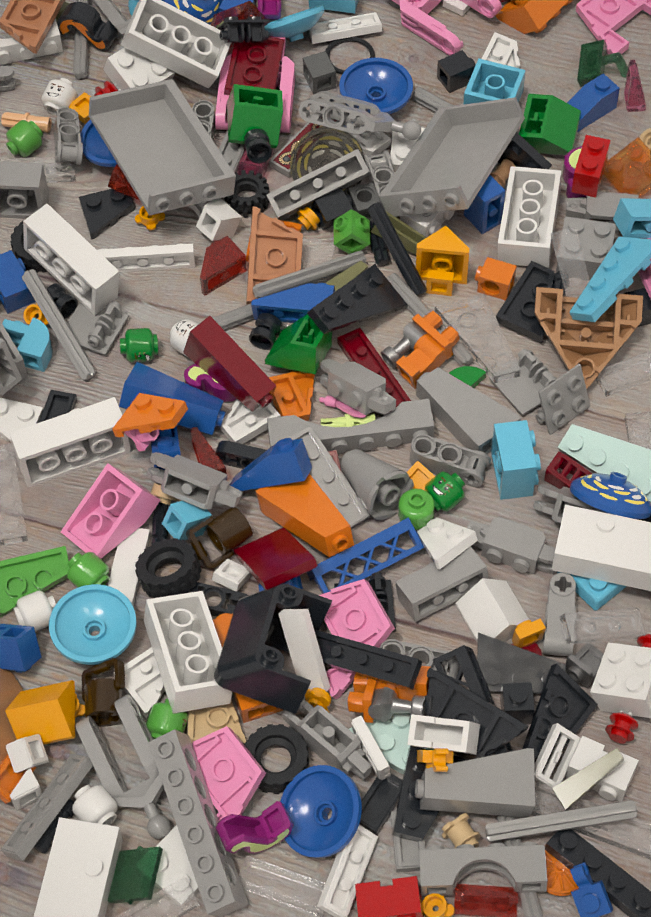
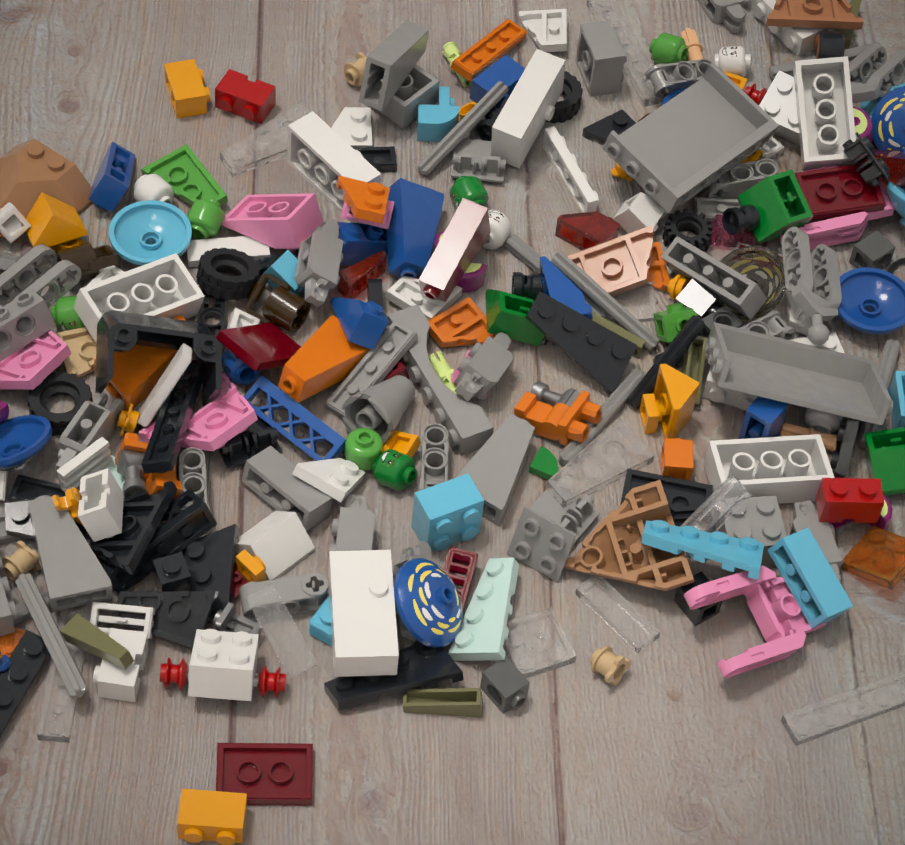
camera: 65 degrees right, 5 degrees down
(360, 350) = (504, 397): dark red tile -> none

